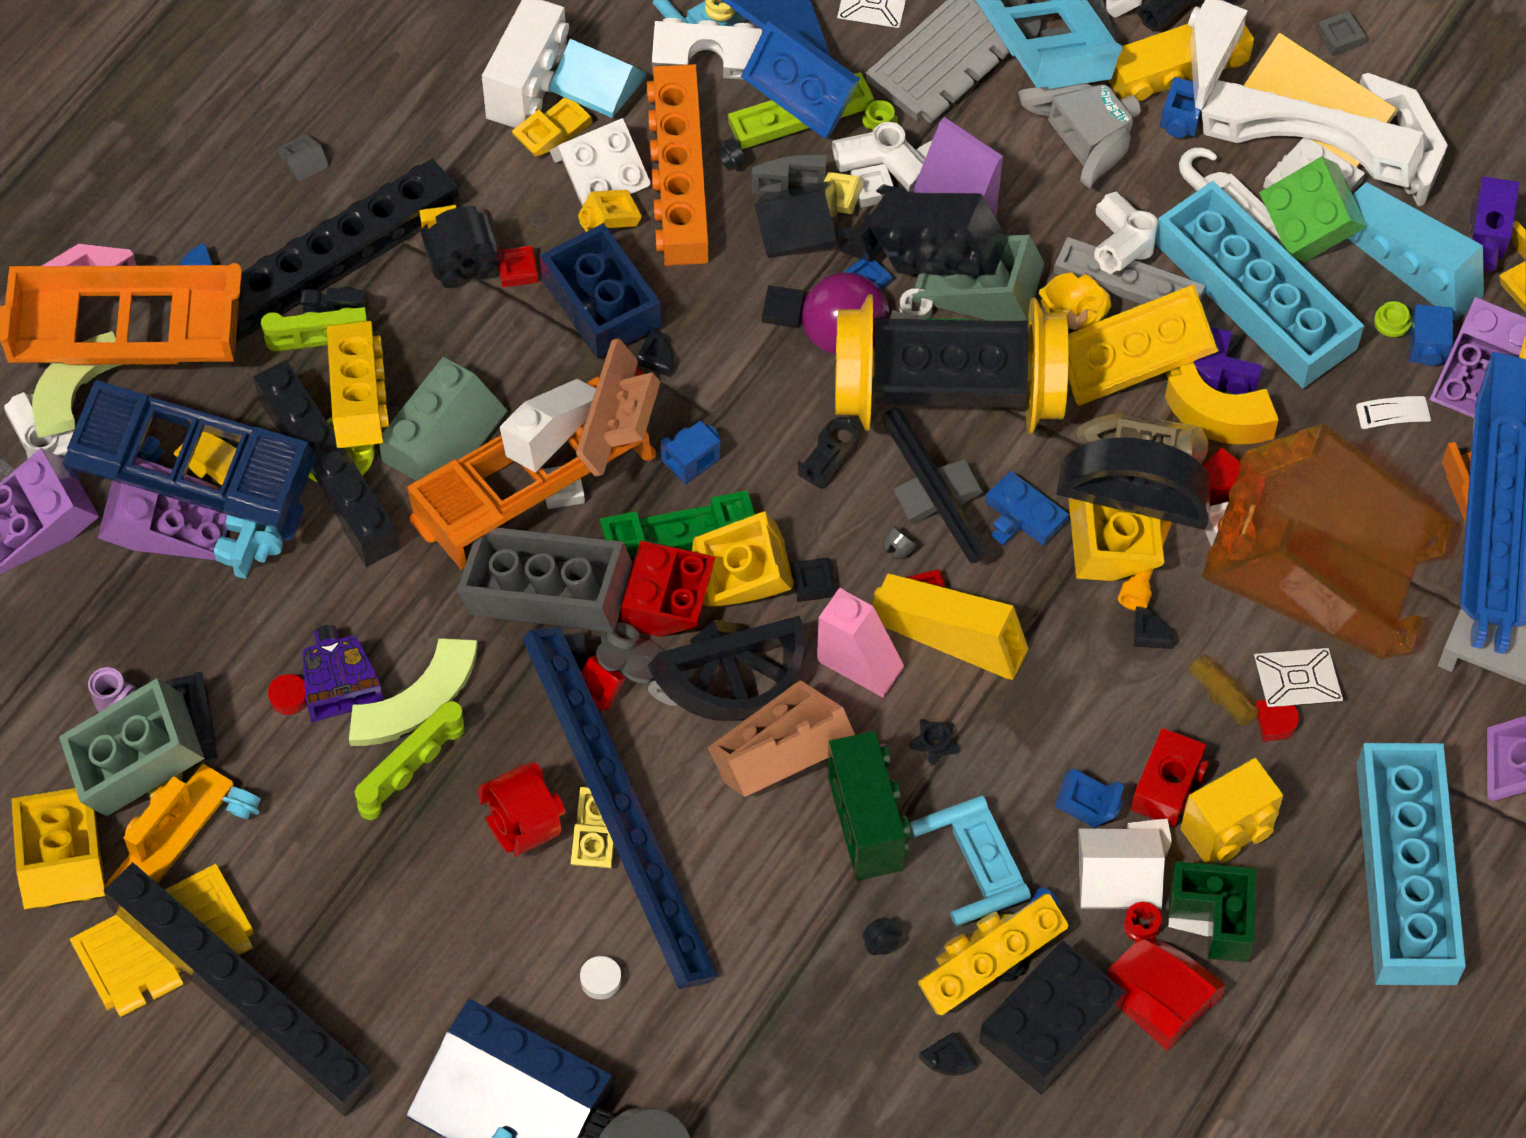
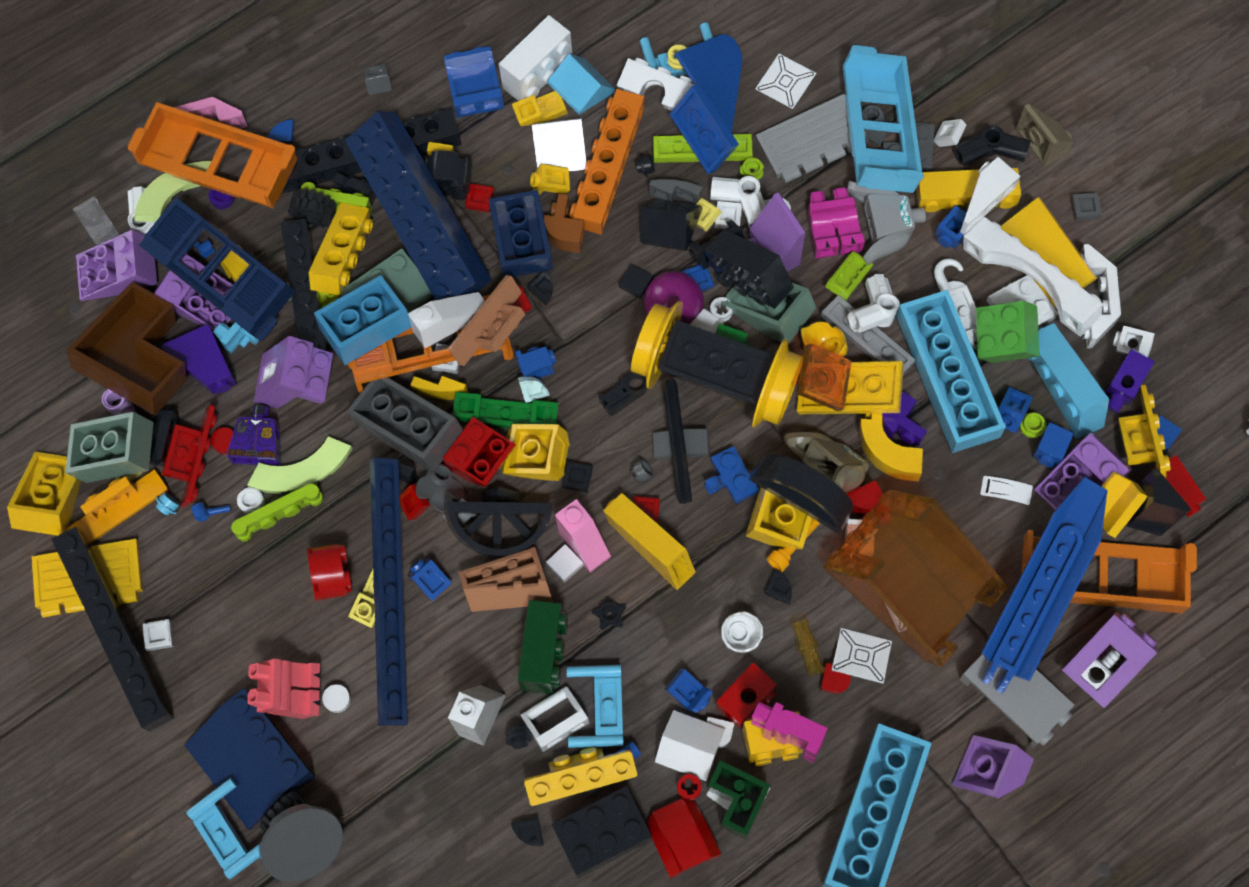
camera: 25 degrees right, 10 degrees up
(100, 618) = (122, 351): none -> reddish brown piece
(142, 378) = (220, 200): none -> dark purple tile
(210, 596) = (202, 359): none -> dark purple slope
(244, 726) = (186, 453): none -> red bracket
(291, 341) = (313, 207): none -> black tyre
(297, 800) = (201, 513): none -> blue hand
(303, 982) = (158, 635): none -> white tile
(354, 562) = (293, 371): none -> medium lavender brick
(360, 759) = (250, 500): none -> white tile
(435, 458) = (363, 319): none -> dark azure brick
(444, 119) = (473, 81): none -> blue panel
(444, 293) = (417, 207): none -> dark blue brick
(530, 979) = (285, 688): none -> coral hips
(582, 523) = (443, 391): none -> yellow slope
(660, 268) = (561, 231): none -> dark orange brick
(664, 774) = (428, 578): none -> blue bracket
(701, 485) = (532, 388): none -> light aqua tile
(816, 920) = (475, 713): none -> white slope
(848, 693) = (564, 563): none -> white tile
(922, 927) = (561, 730): none -> white tile
(1027, 151) = (834, 224): none -> dark pink hips
(1070, 209) = (849, 275): none -> lime plate
(1100, 336) = (824, 377): none -> clear orange tile
(1128, 697) = (742, 632): none -> white hair
(1259, 774) = (790, 728): none -> dark pink hips
(1363, 303) = (1014, 408): none -> blue bracket
(1470, 166) = (1144, 340): none -> white brick

